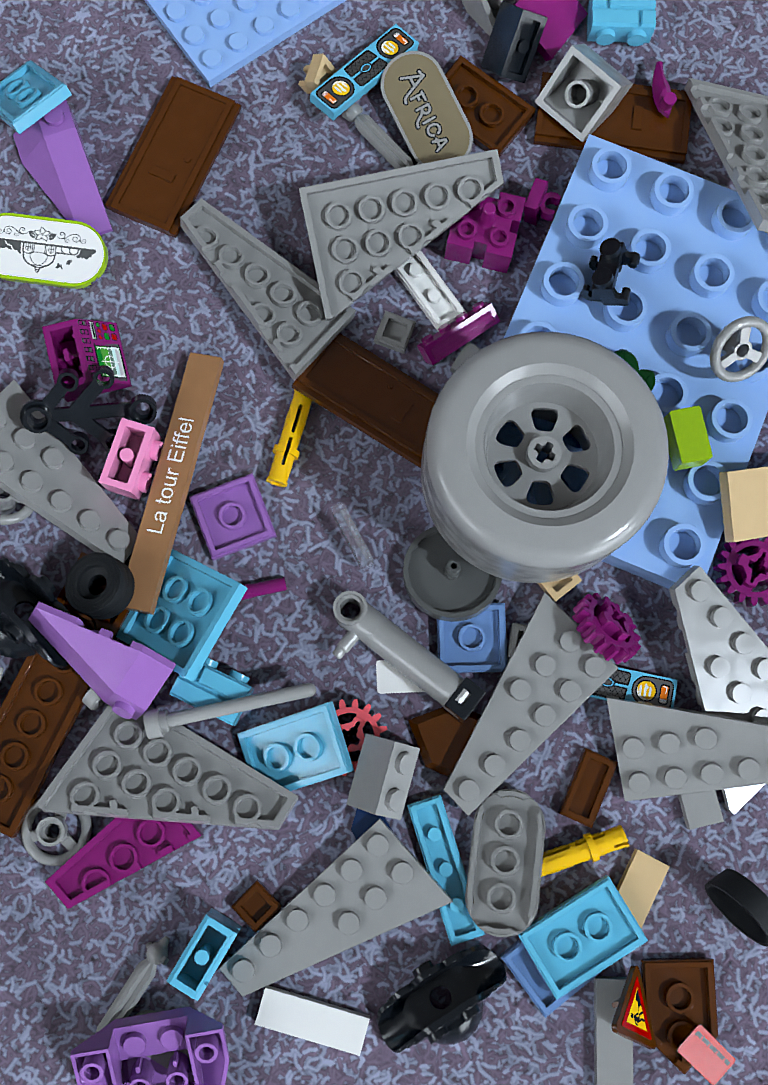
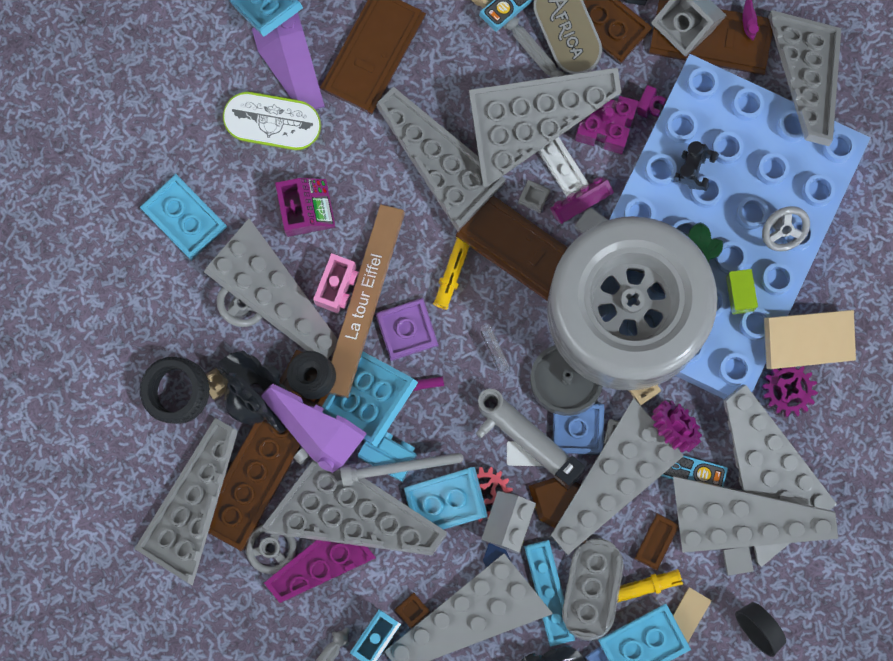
camera: 10 degrees right, 0 degrees up
(82, 411) = (303, 247): black plant -> none

